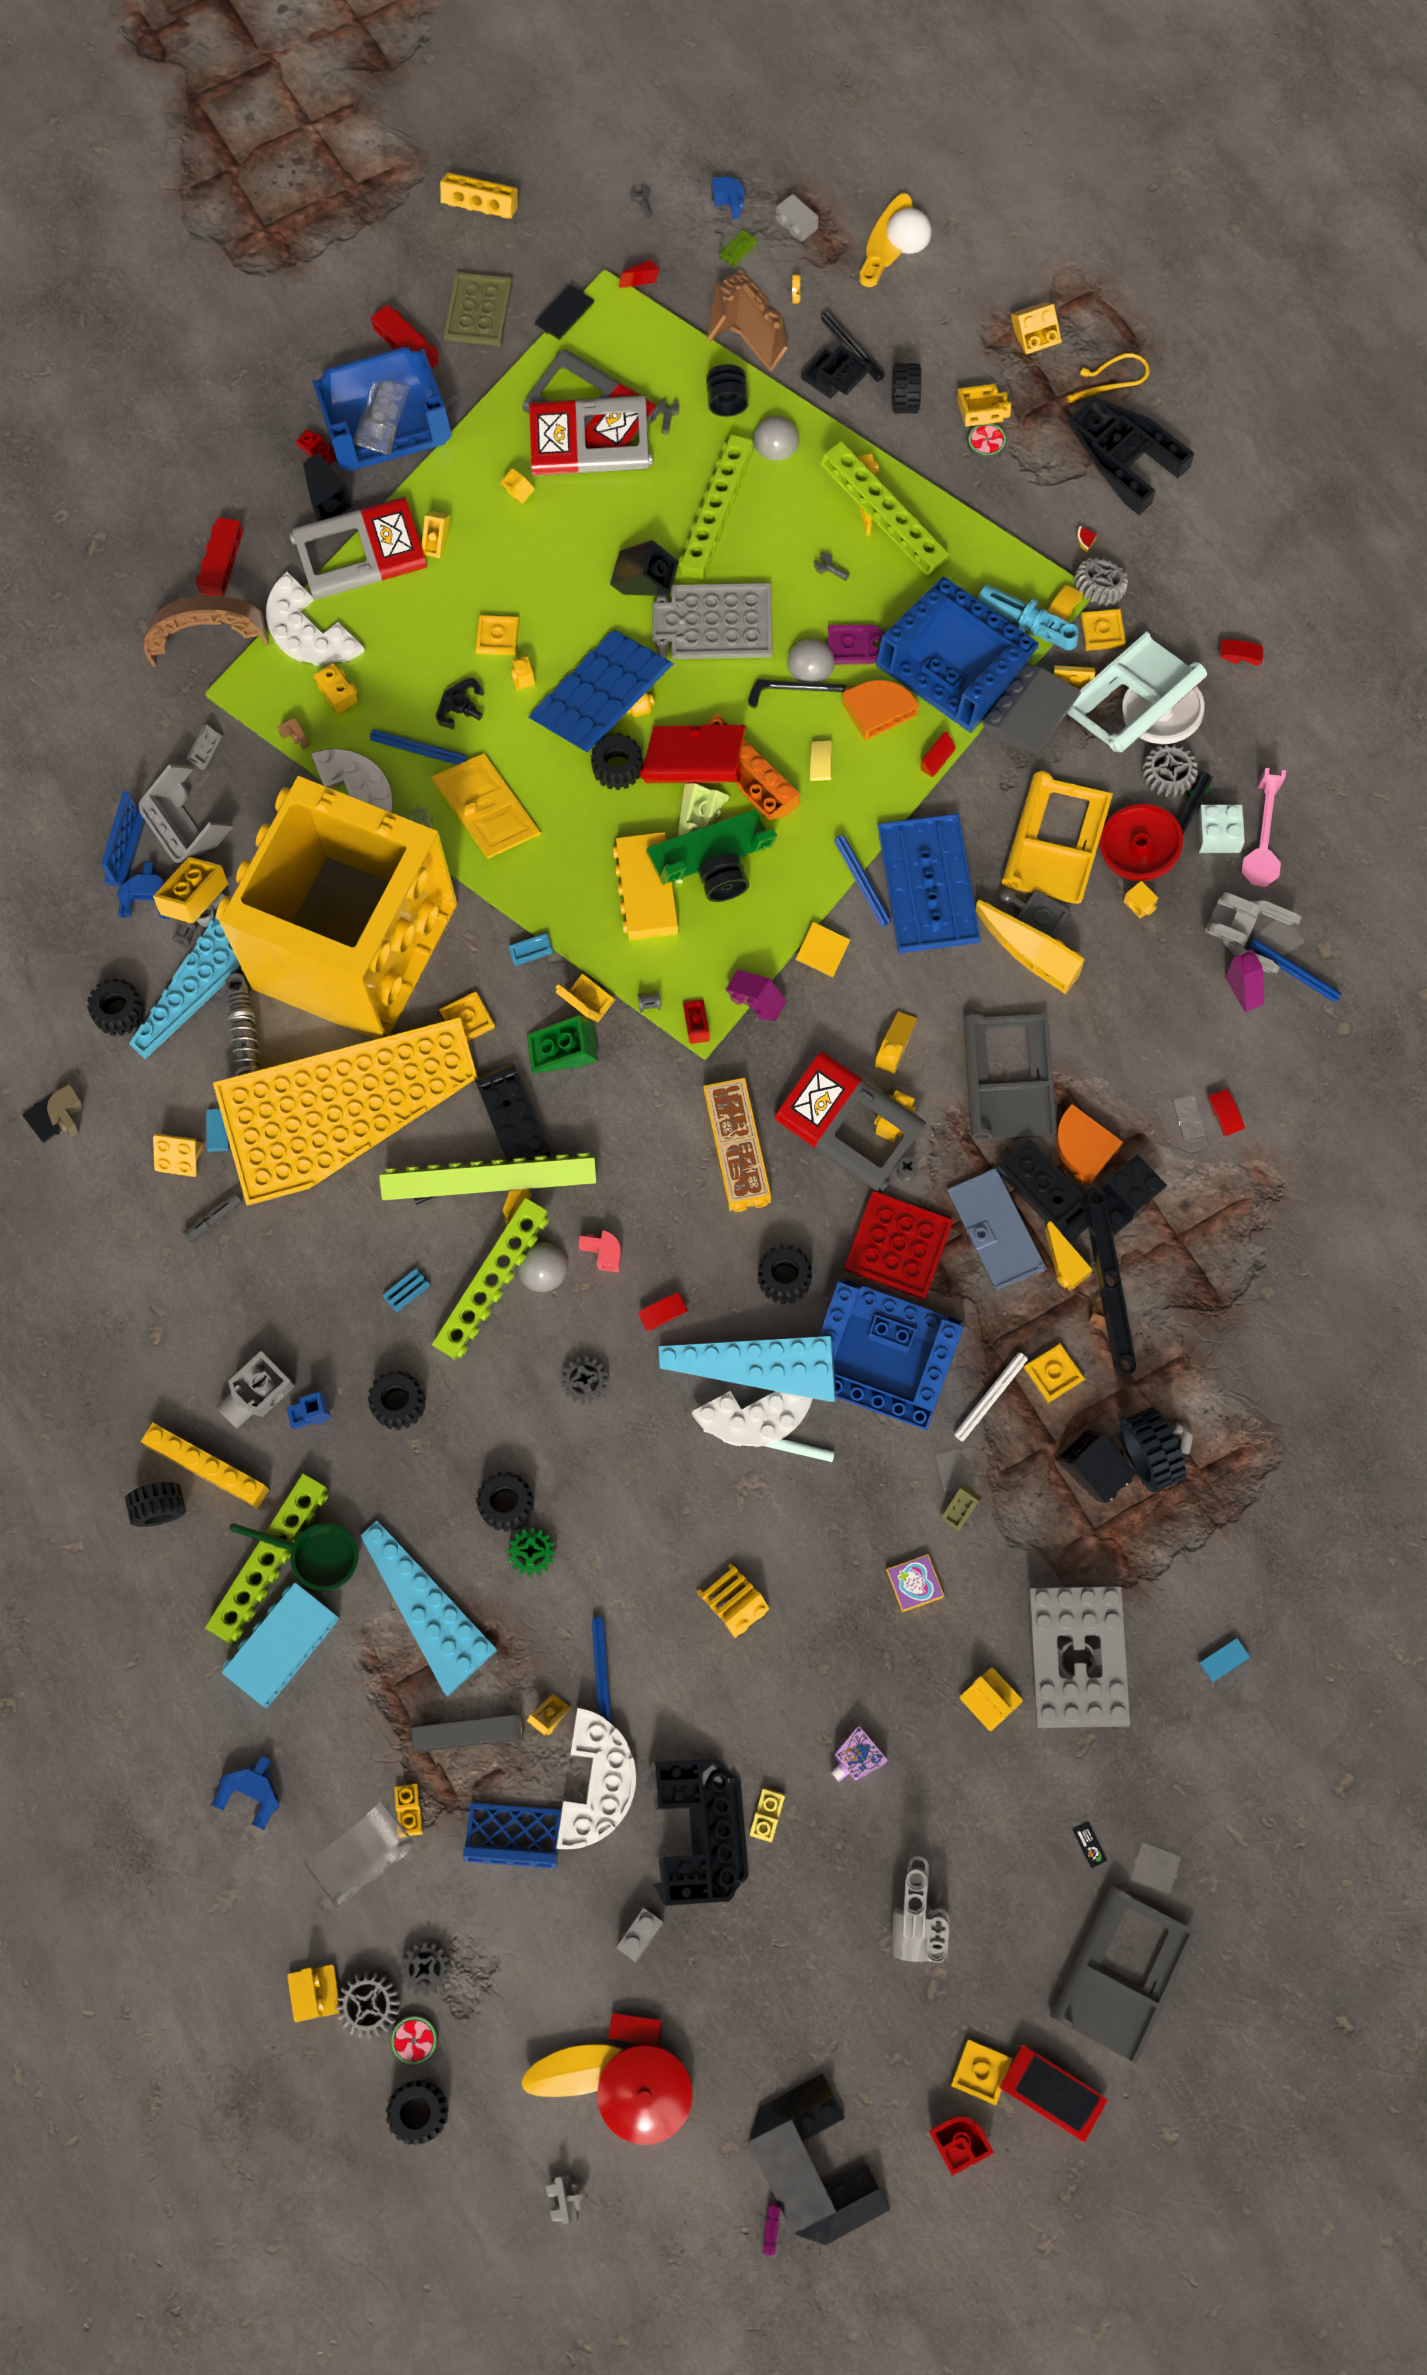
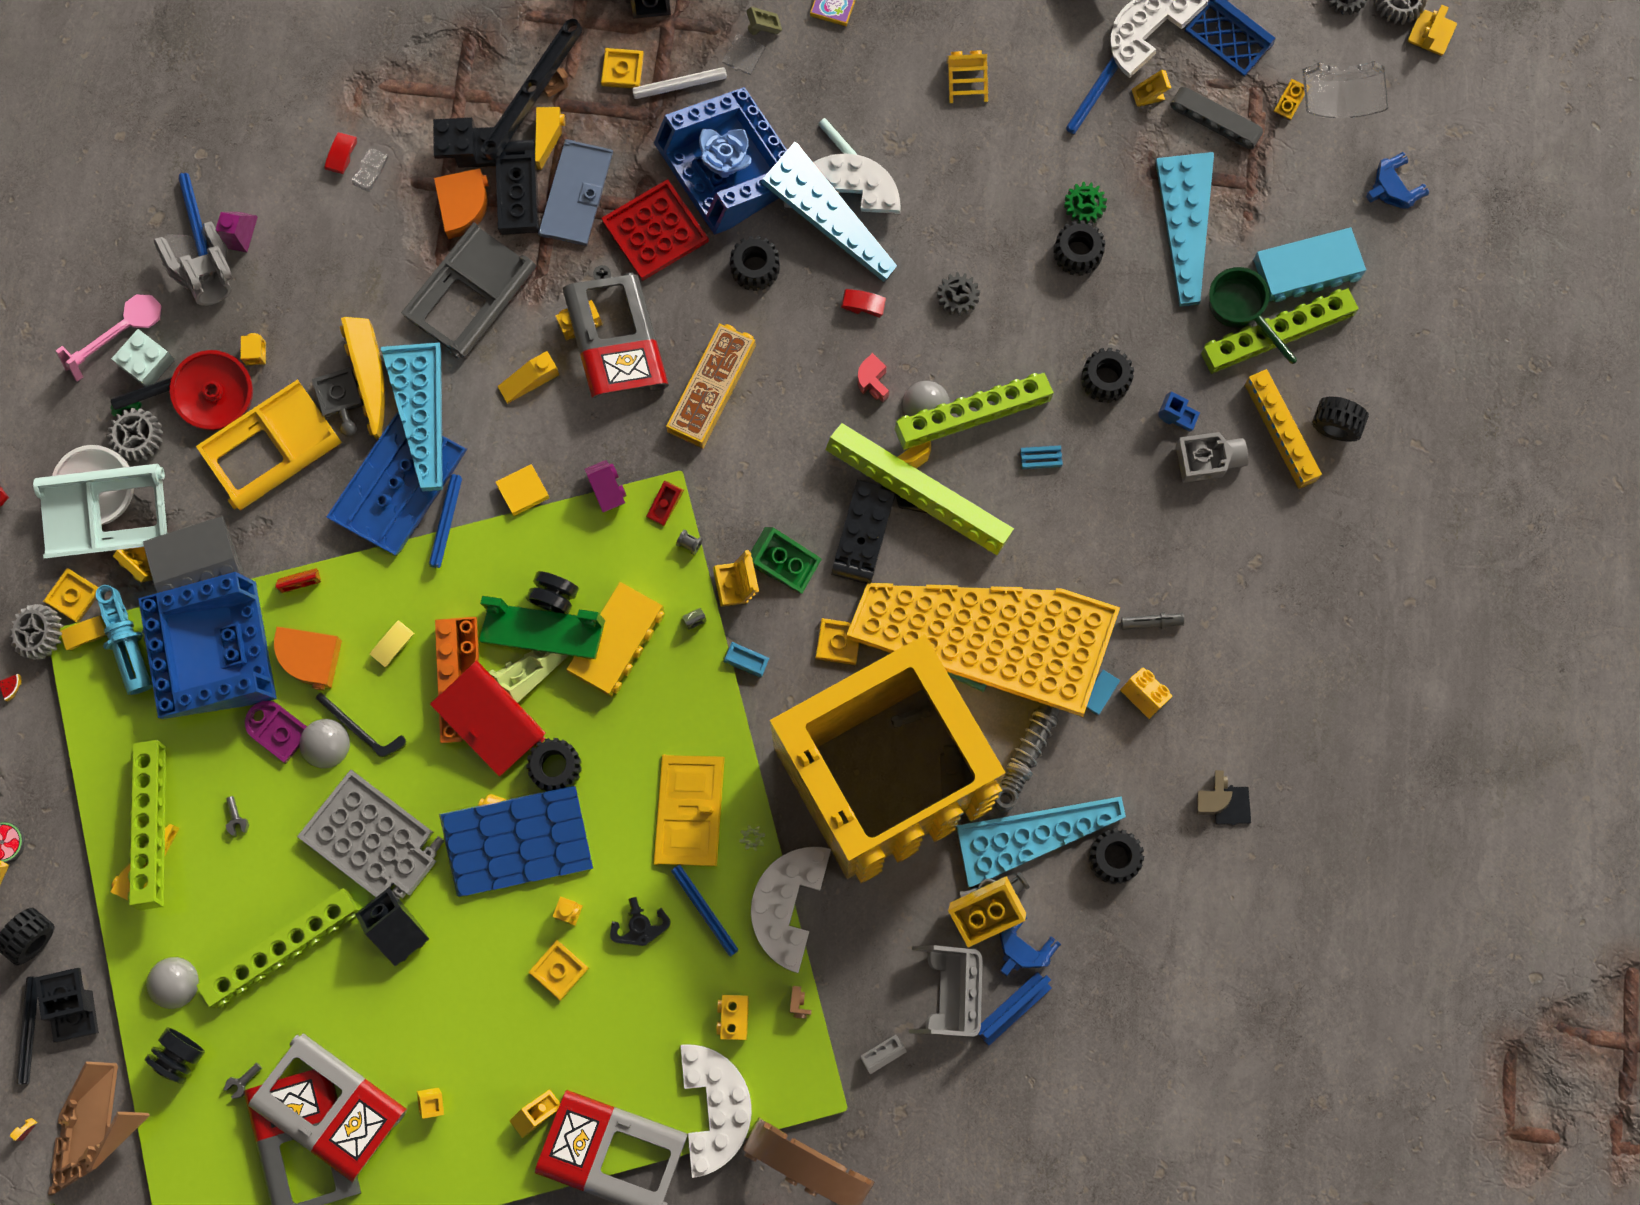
camera: 145 degrees left, 5 degrees up
(597, 947) = (694, 618): none -> dark grey slope
(890, 1365) = (724, 153): none -> light blue brick
(977, 963) = (418, 395): none -> medium azure wing

